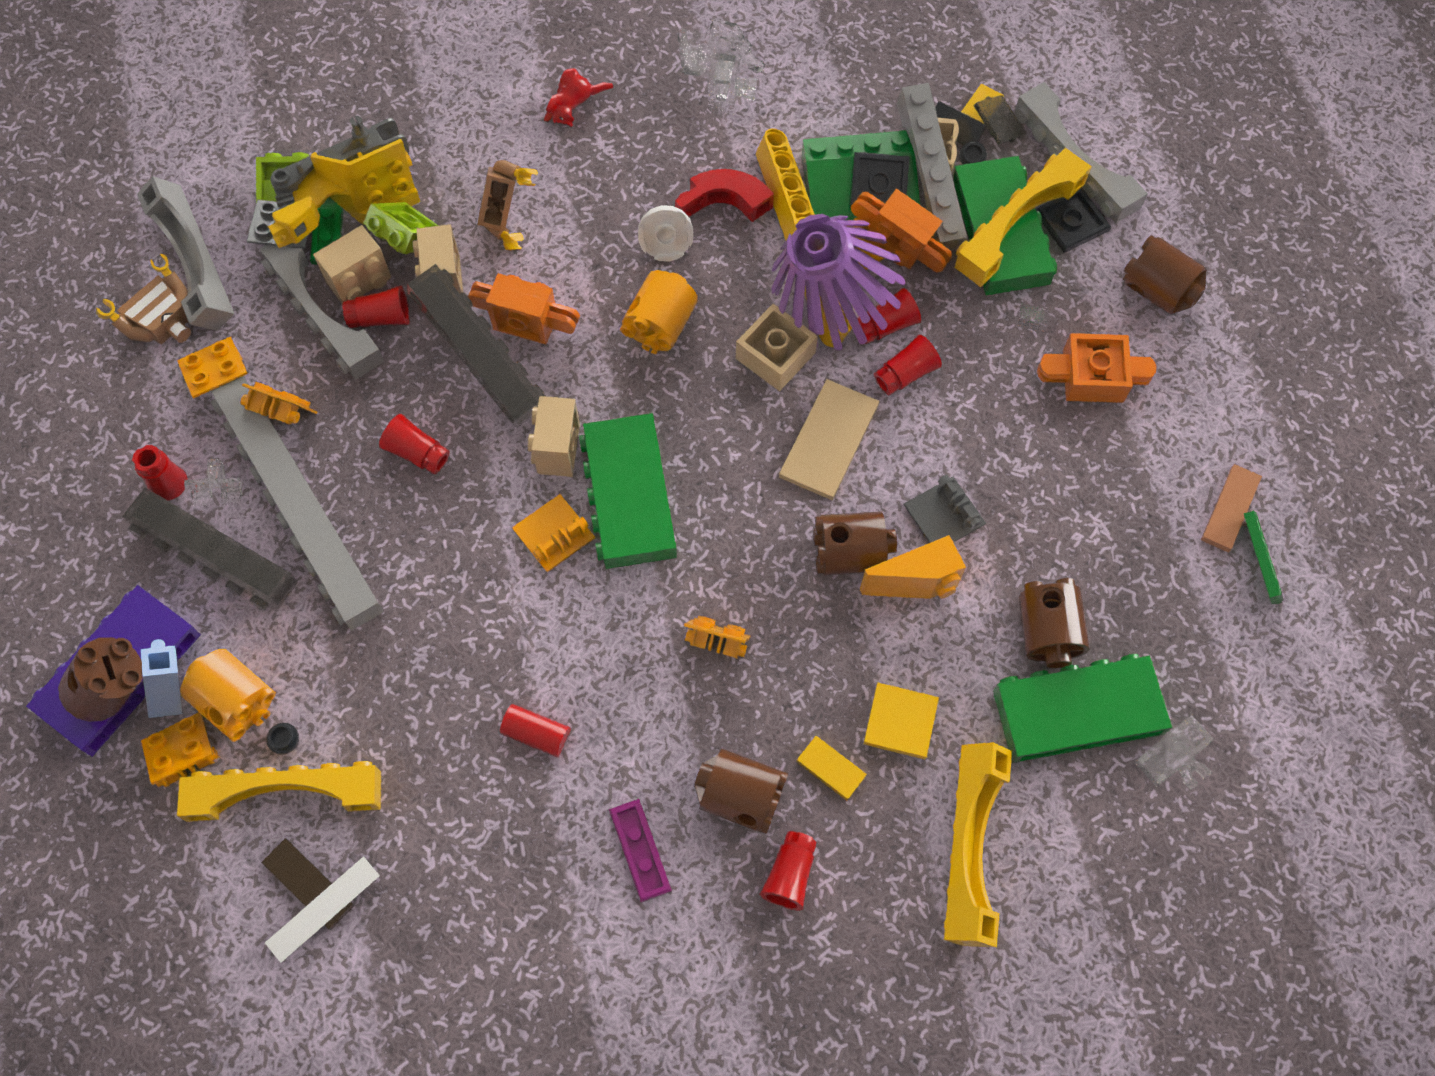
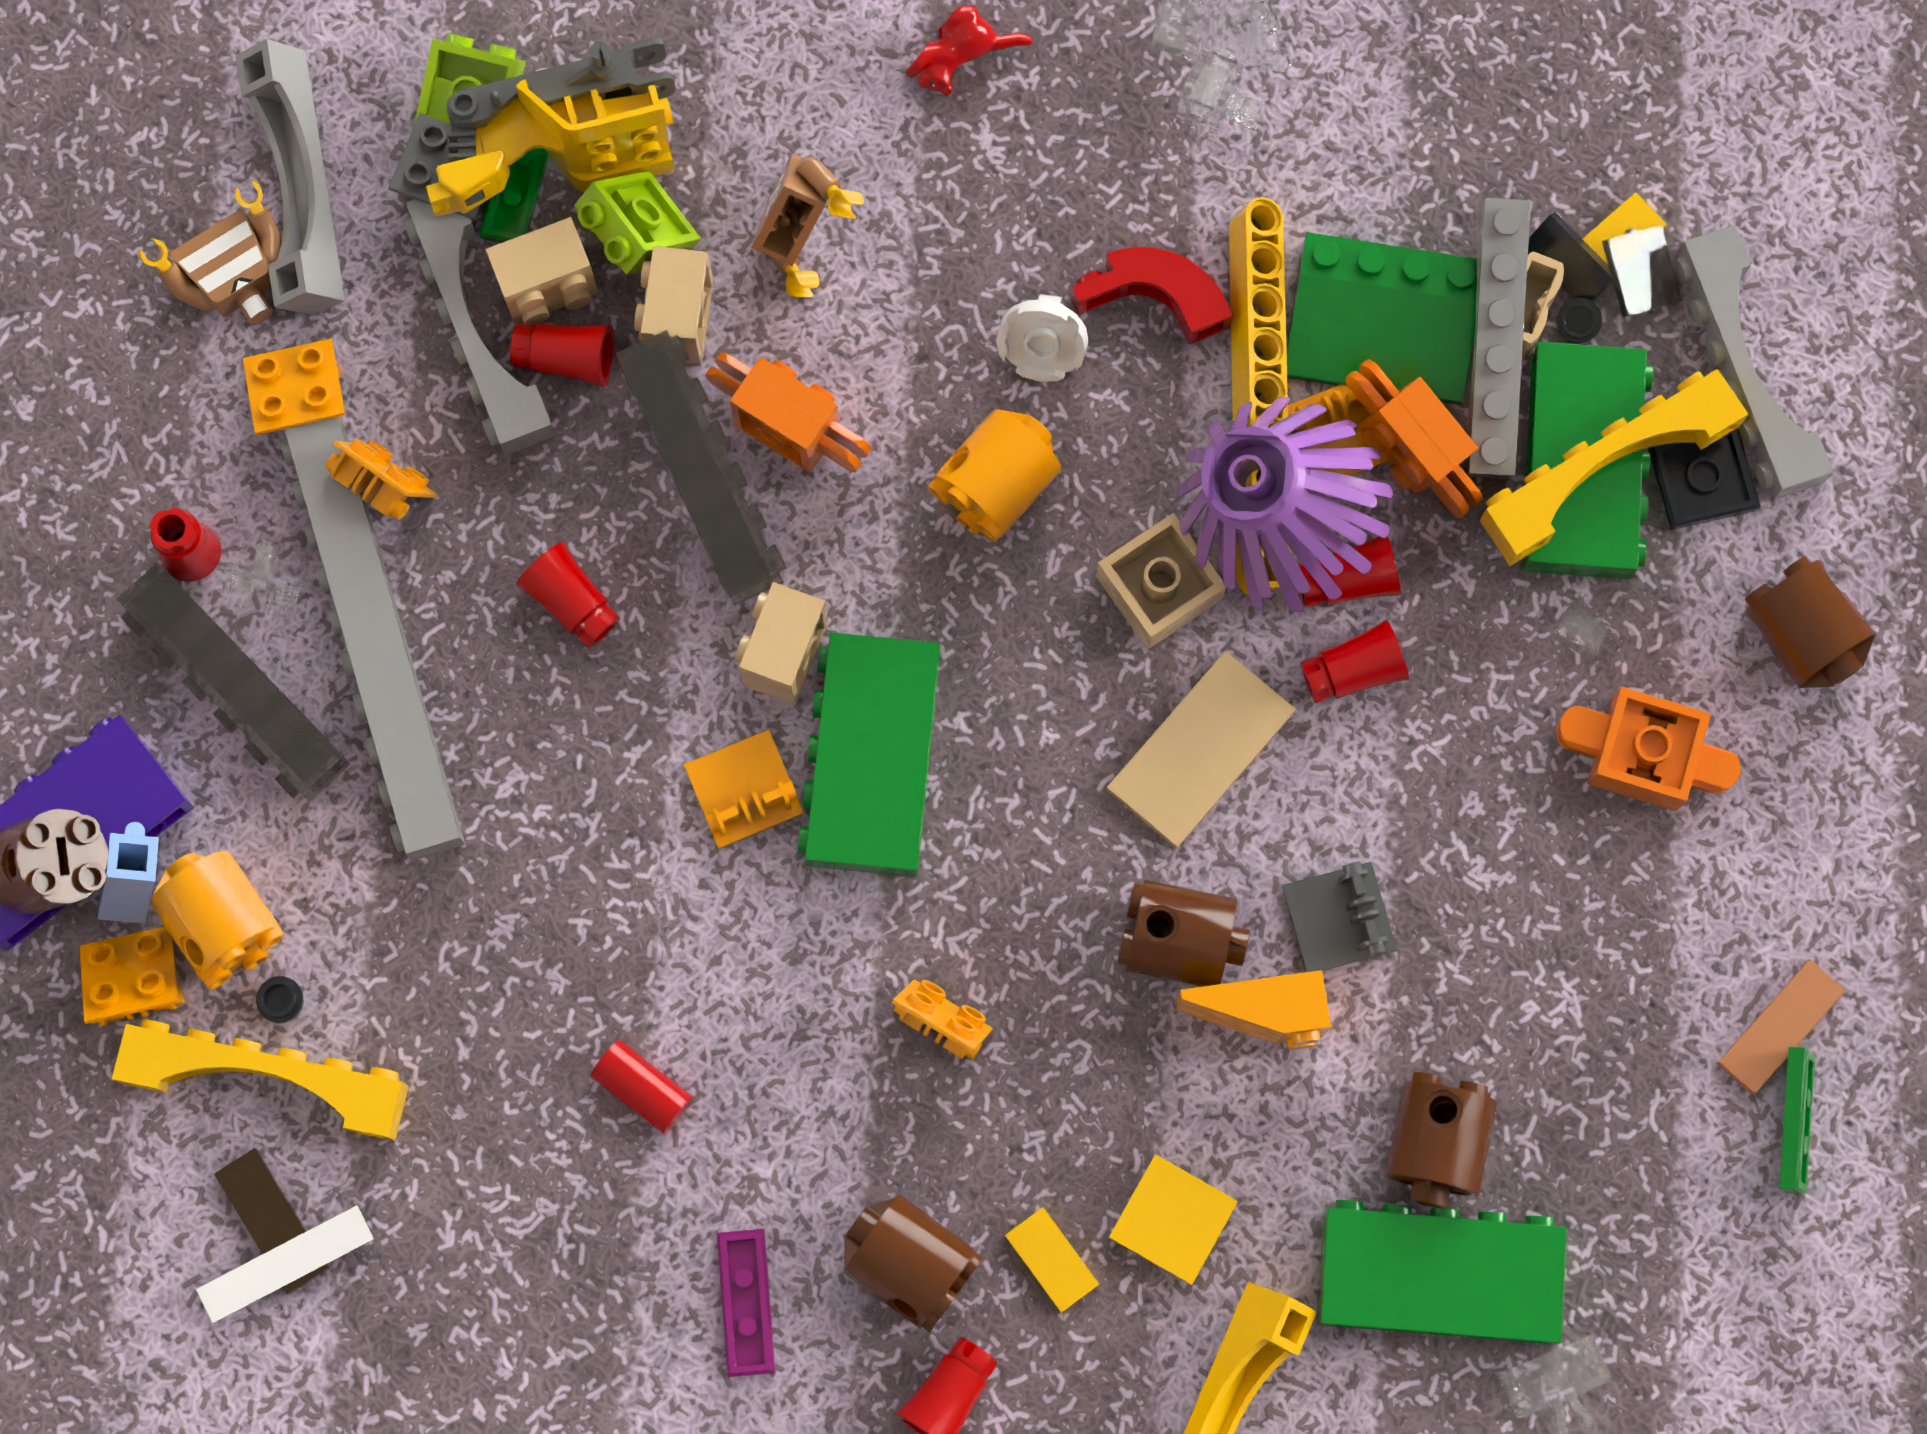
camera: 15 degrees right, 10 degrees up
(878, 175) = (1408, 336): black tile -> none

